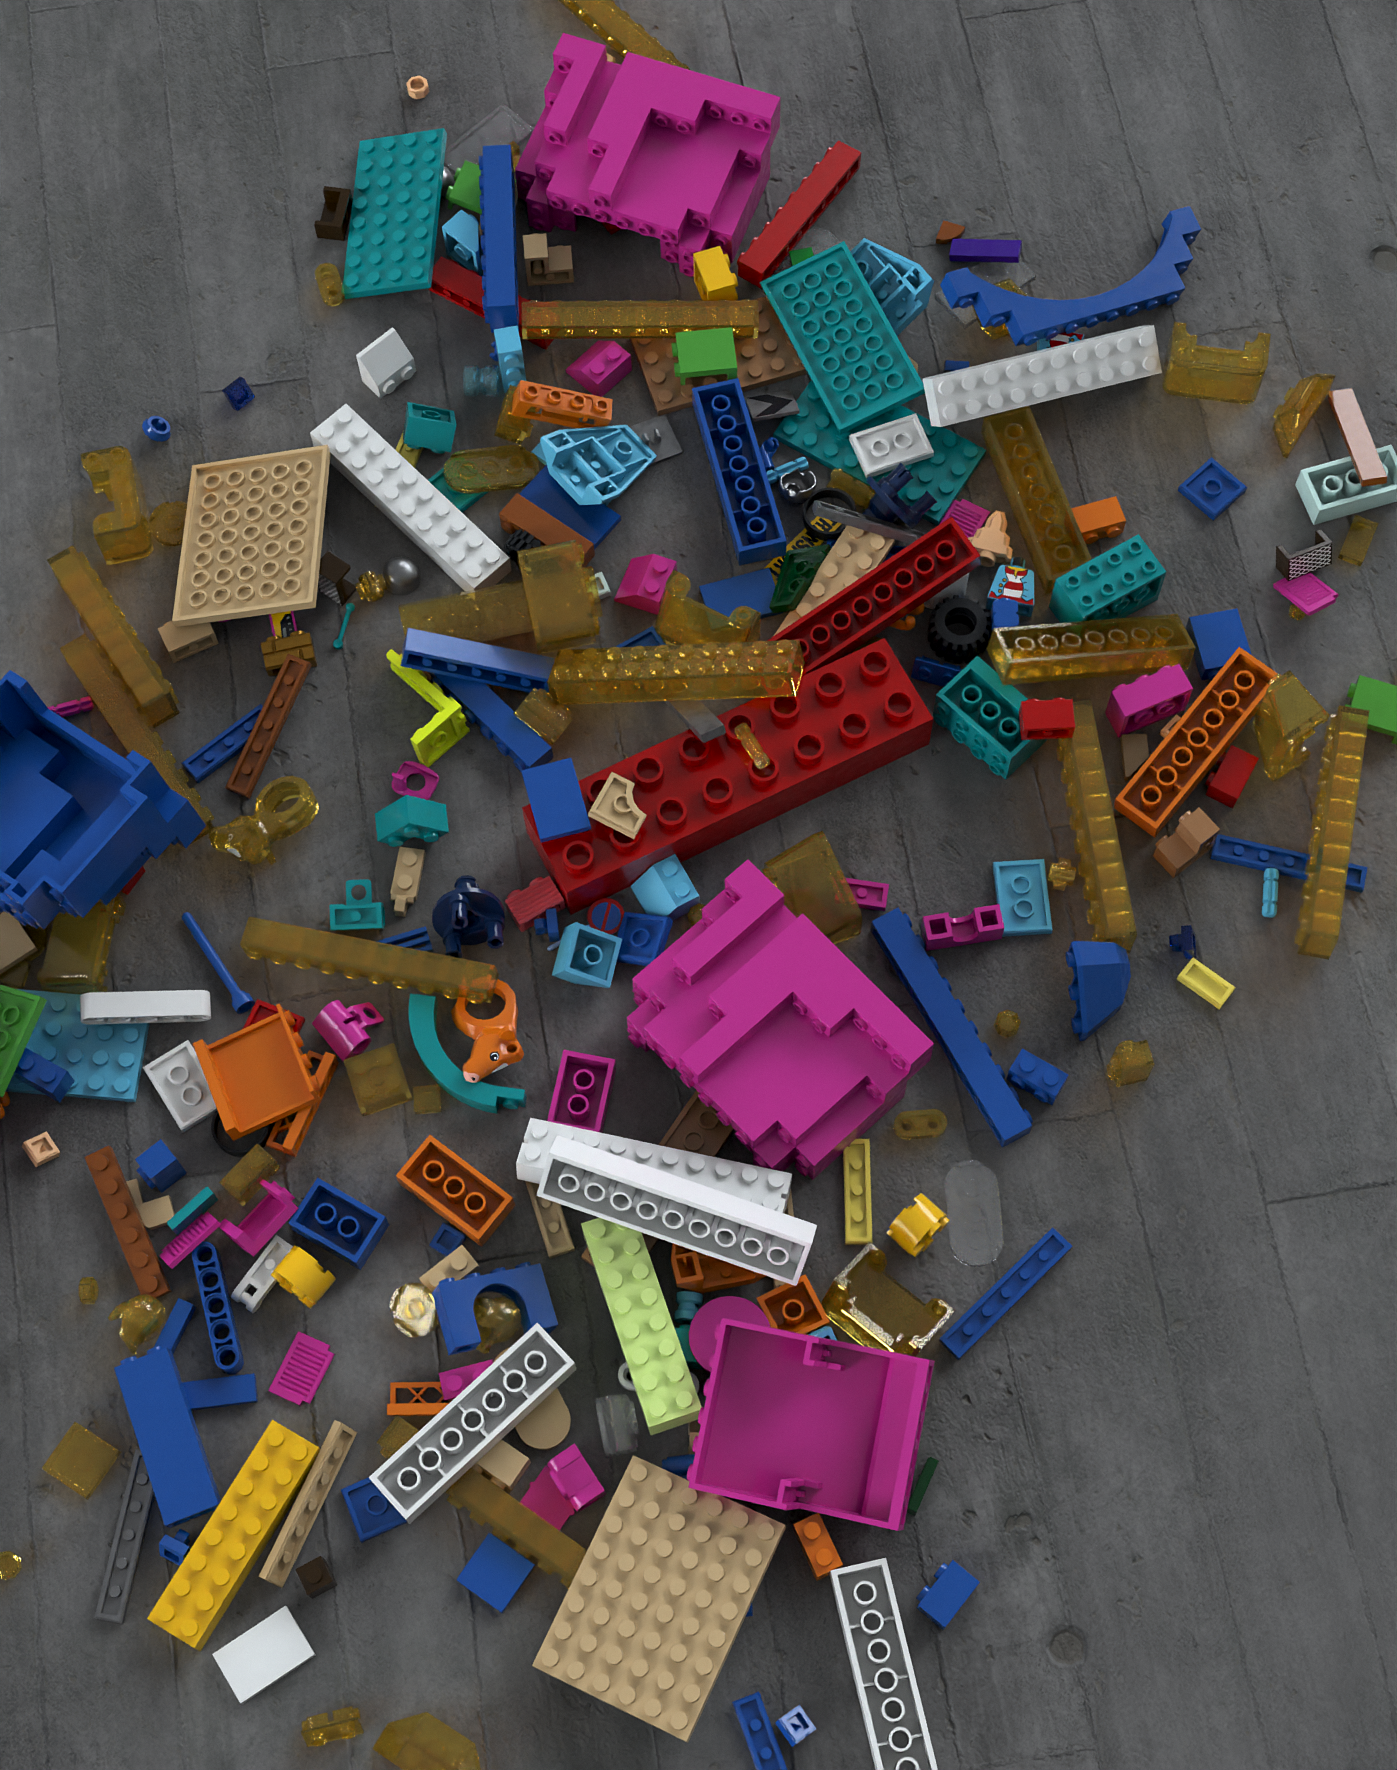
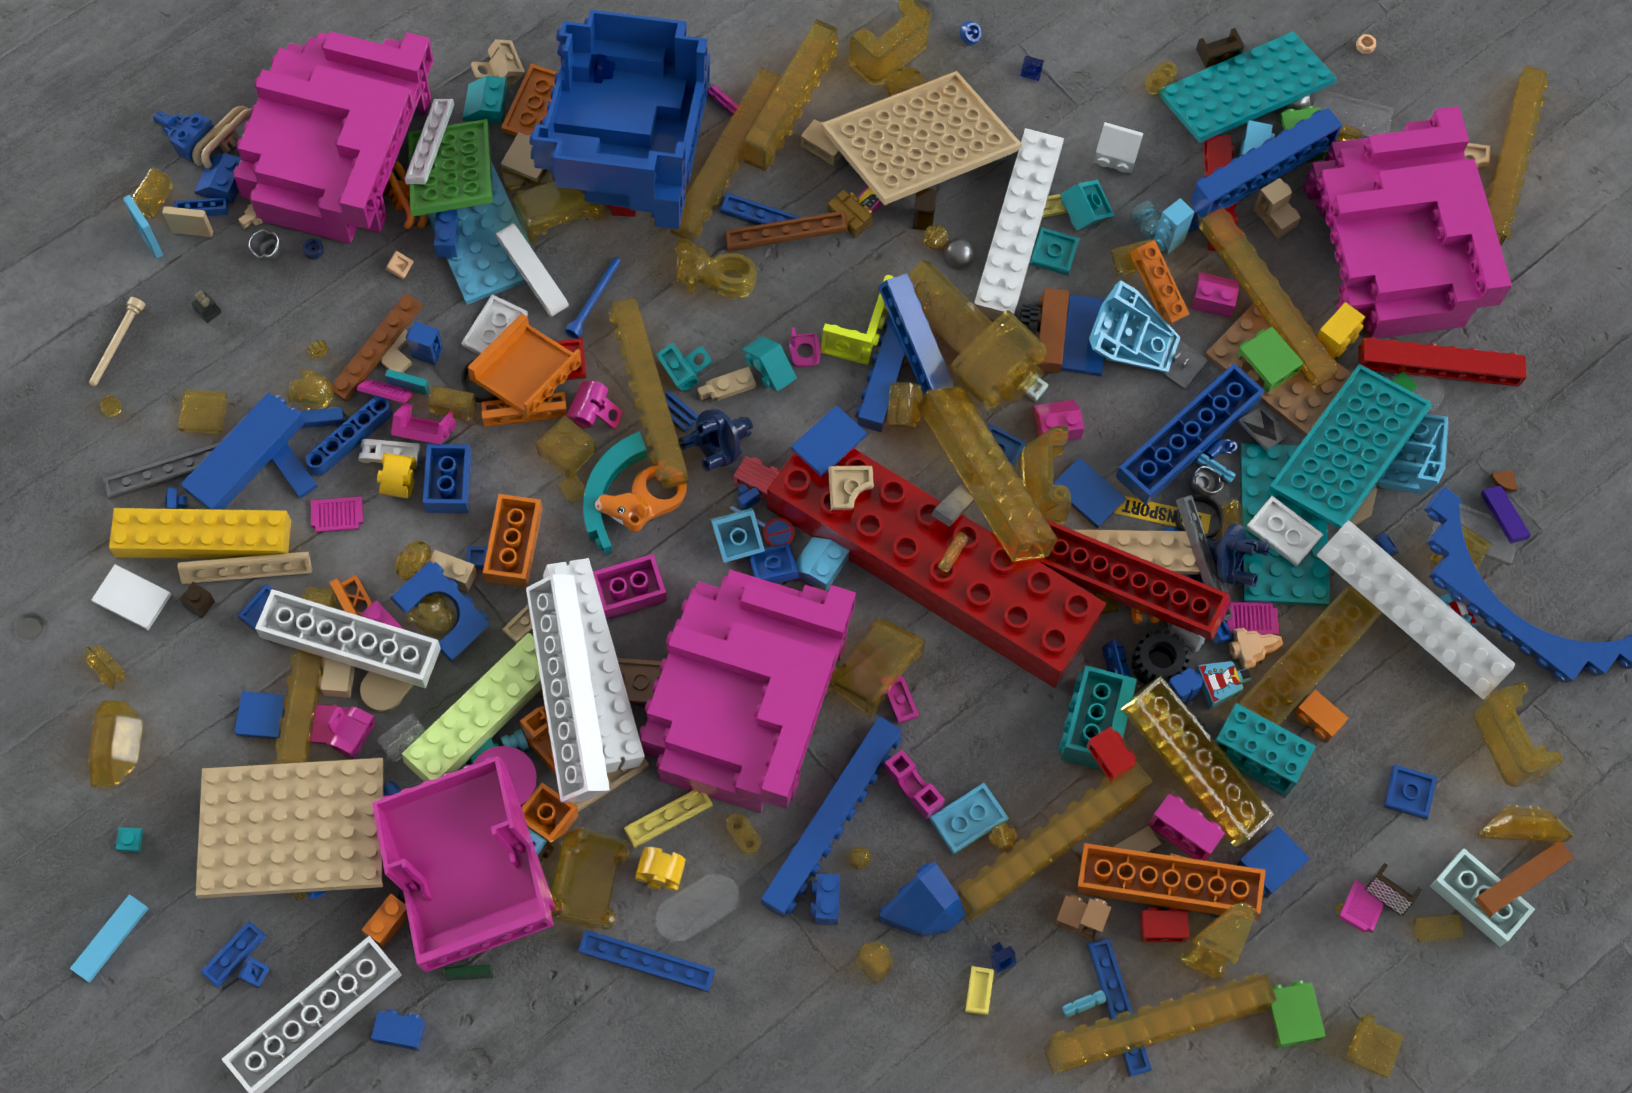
camera: 55 degrees right, 0 degrees up
(337, 643) = (880, 241): teal hinge -> none
(490, 469) = (1081, 264): clear yellow tile -> none
(797, 576) = (1127, 520): dark green wing -> none

